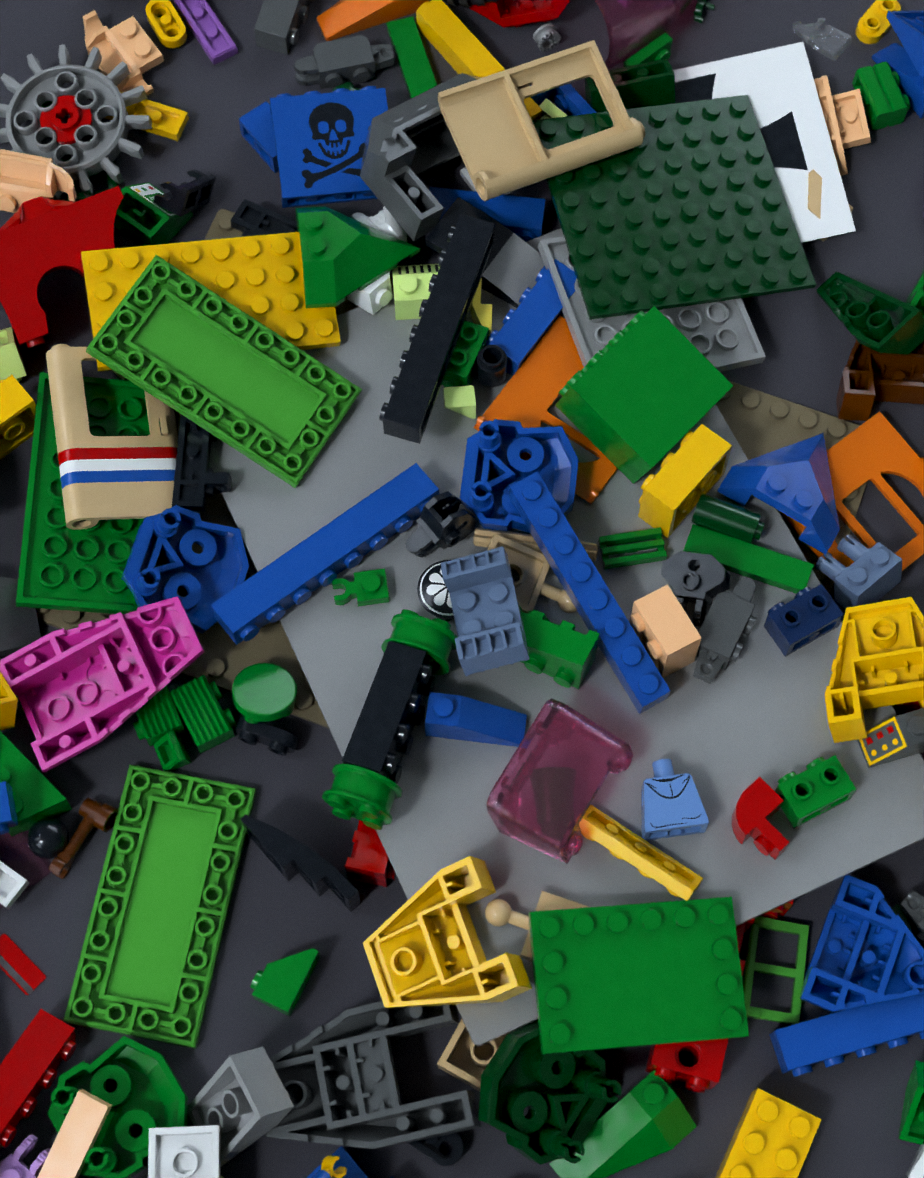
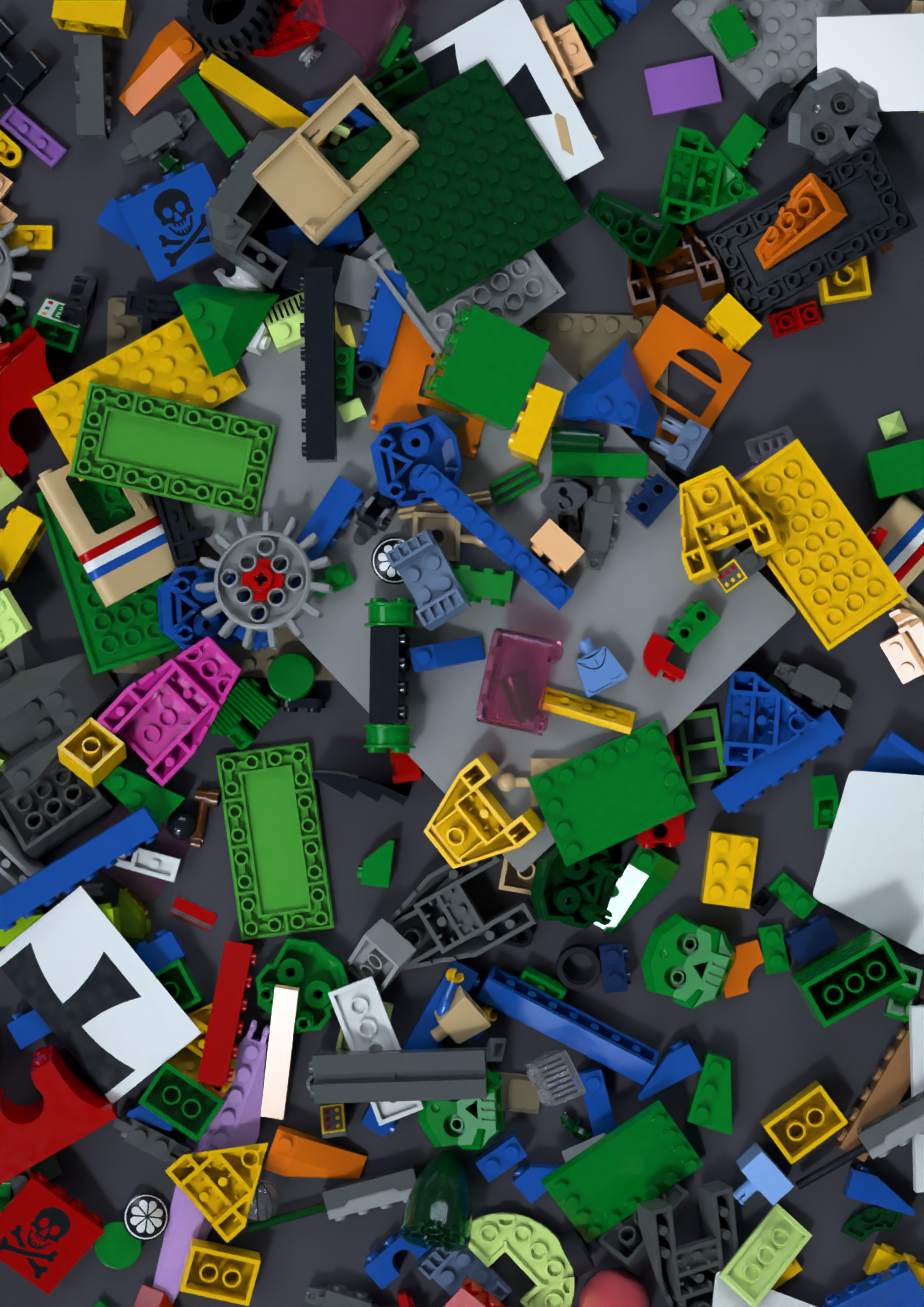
camera: 20 degrees left, 20 degrees up
(274, 550) = (294, 600): none -> light grey gear

